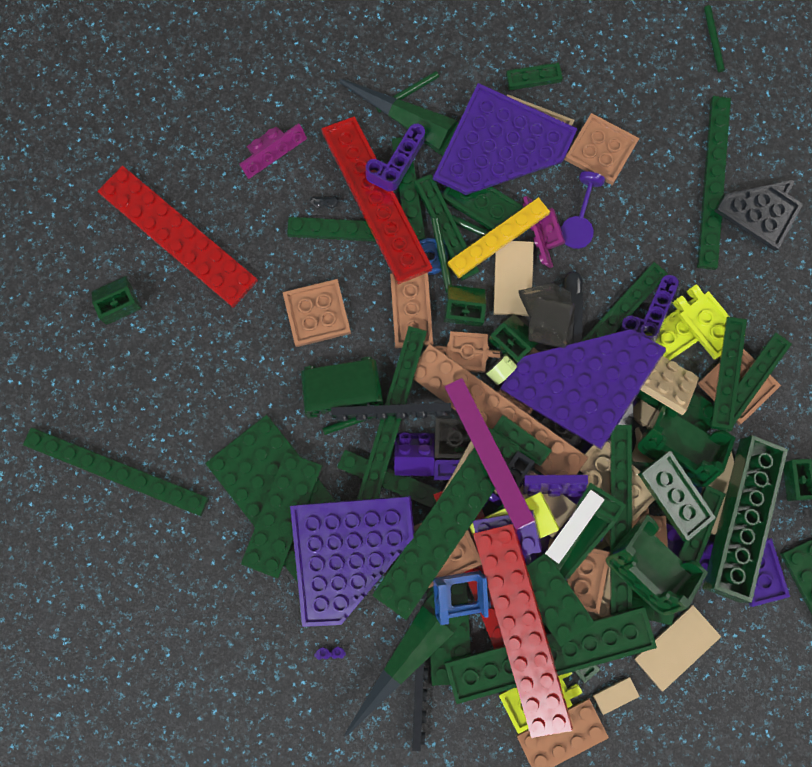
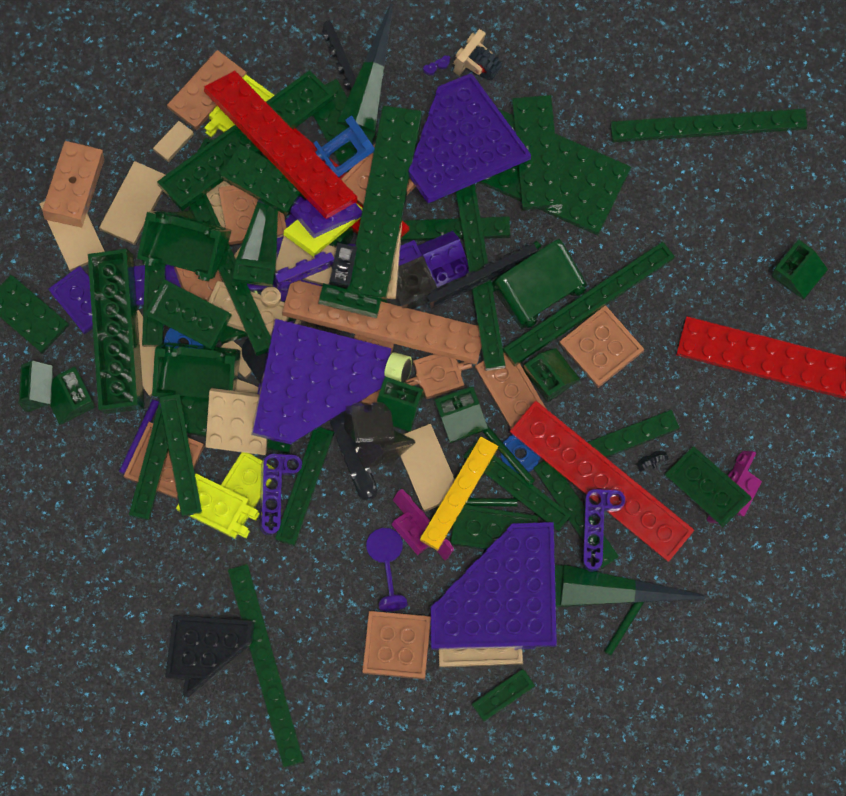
camera: 160 degrees right, 5 degrees down
(289, 637) = (477, 58): none -> plate
(292, 153) = (708, 486): none -> dark green plate
(308, 352) = (588, 304): none -> dark green plate
(371, 306) = (550, 374): none -> dark green slope
(489, 454) = (375, 270): magenta tile -> none
(574, 526) = (270, 242): white sticker -> none
(739, 672) = (73, 184): none -> nougat brick
(742, 427) = (147, 418): none -> dark purple bar
(746, 649) = (76, 241): none -> tan tile

